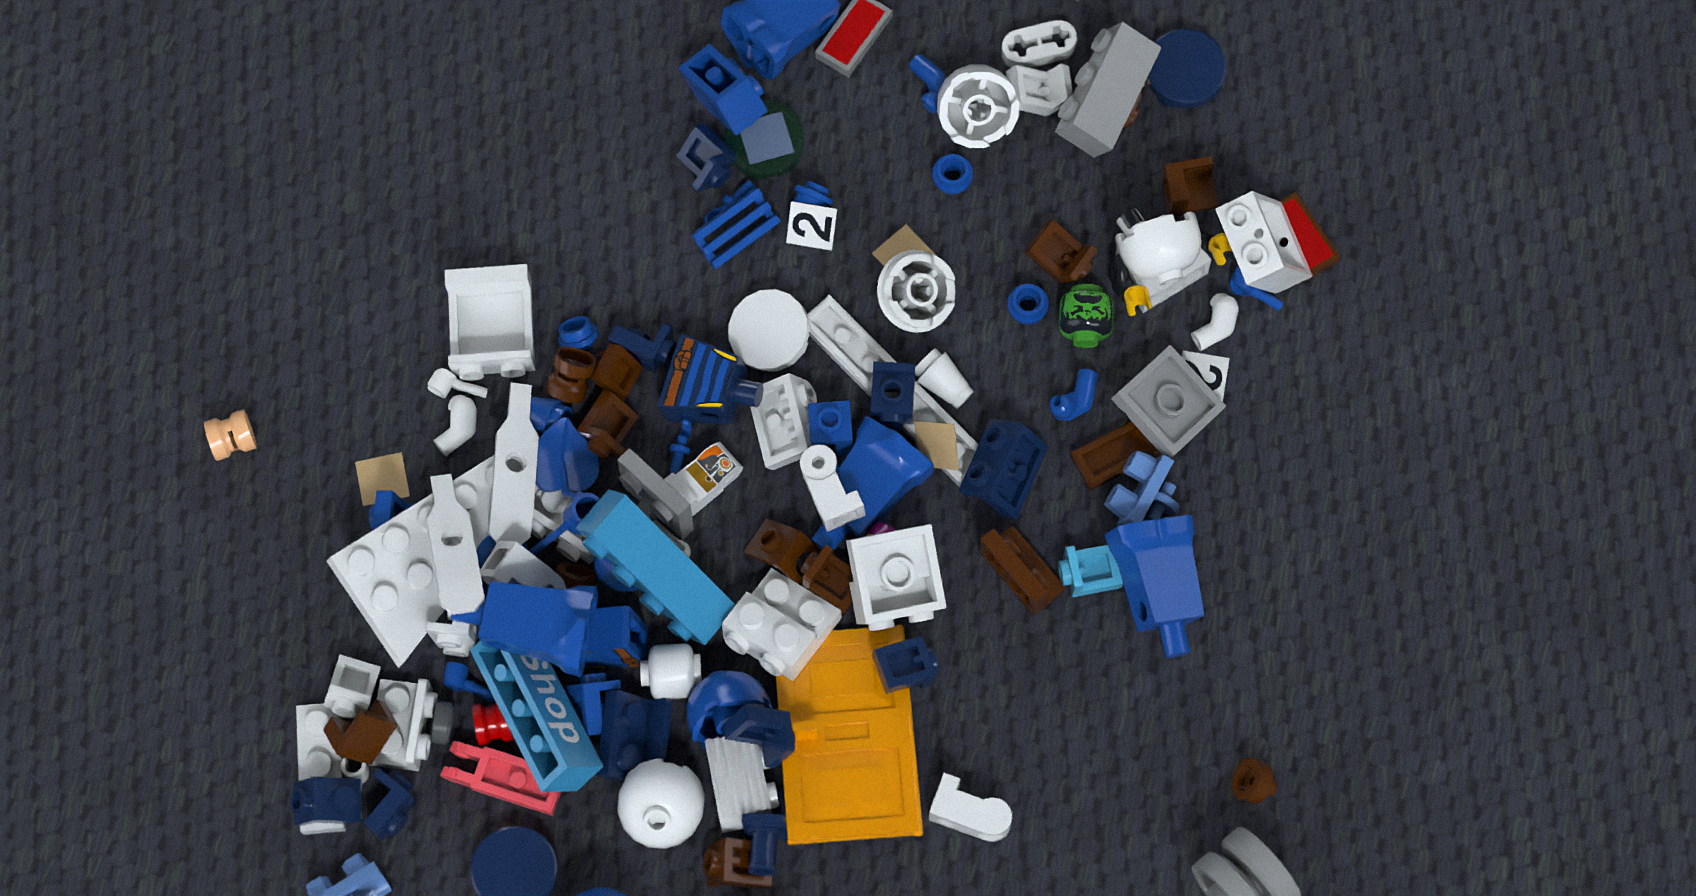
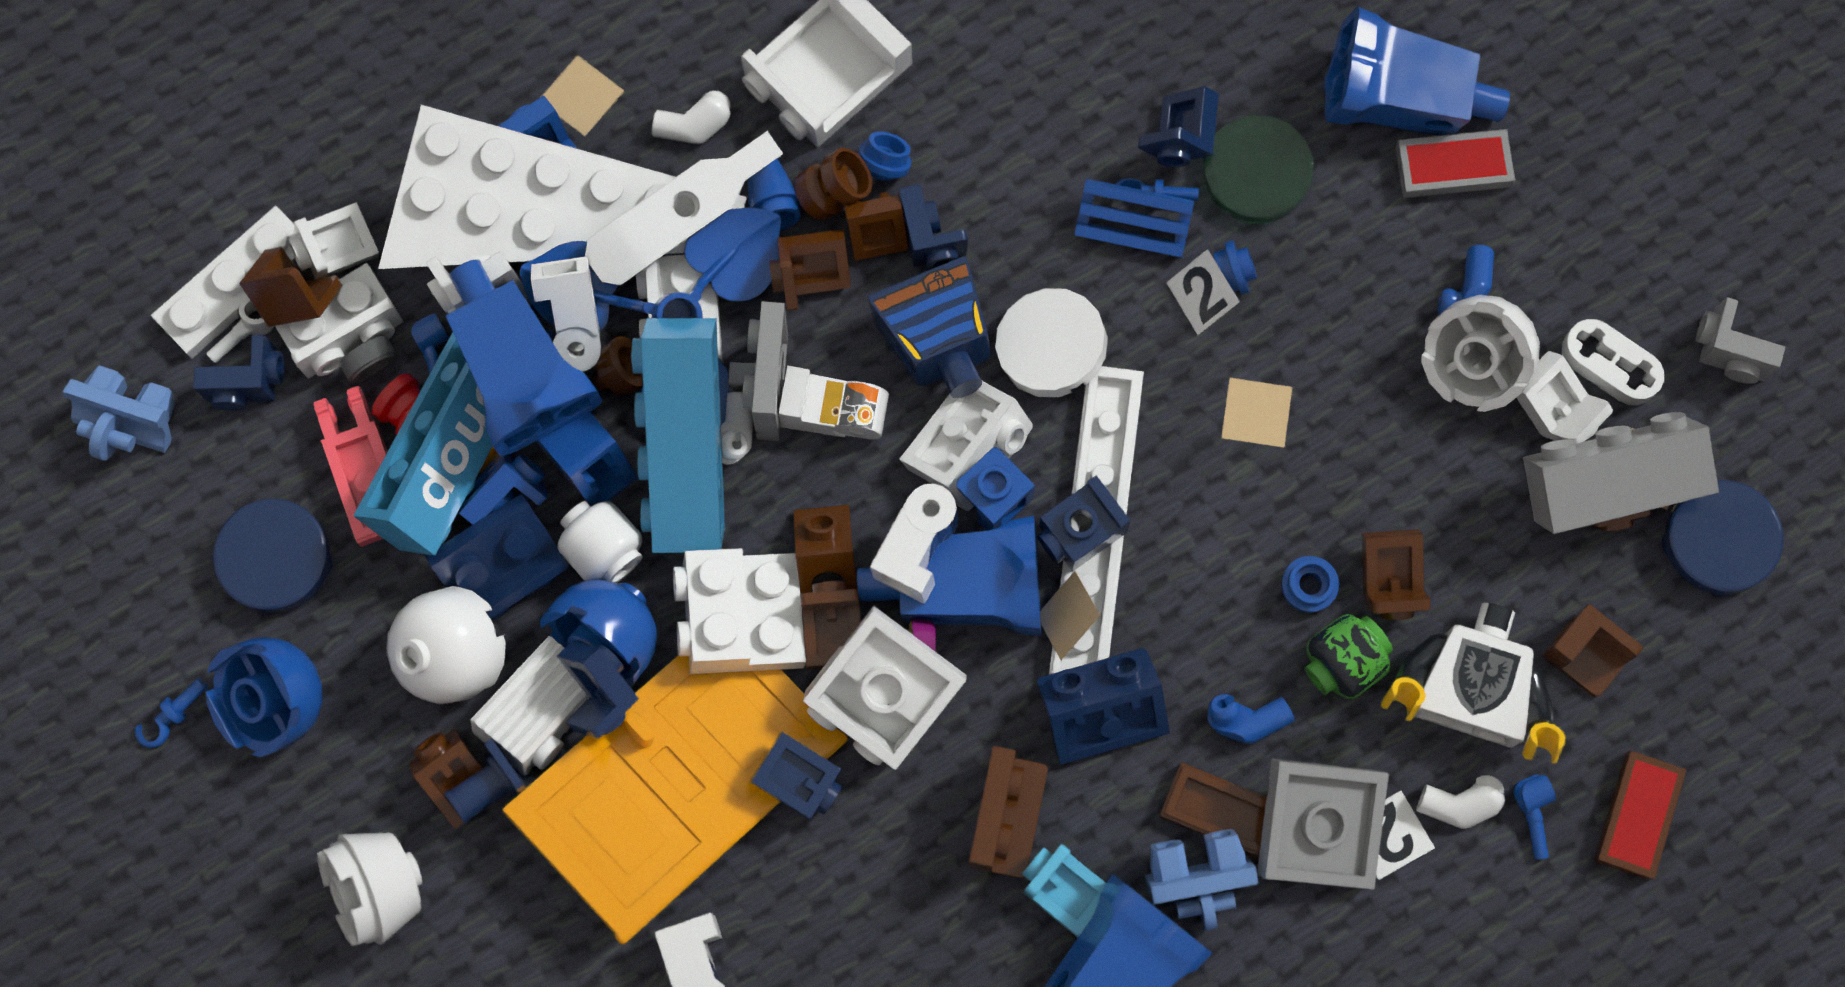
camera: 50 degrees right, 5 degrees up
(326, 801) = (194, 315): dark blue bracket -> none
(444, 380) = (725, 69): white hand -> none
(457, 565) = (511, 234): white piece -> none
(680, 449) = (851, 356): blue hand -> none
(724, 89) = (1270, 81): blue brick -> none
(767, 138) = (1259, 168): sand blue sticker -> none
(916, 290) = (1217, 456): white cone -> none
(943, 378) = (1150, 562): white cone -> none
(956, 163) = (1395, 375): blue plate -> none
(1161, 247) = (1481, 678): white cylinder -> none
(1254, 232) = (1583, 771): white window -> none

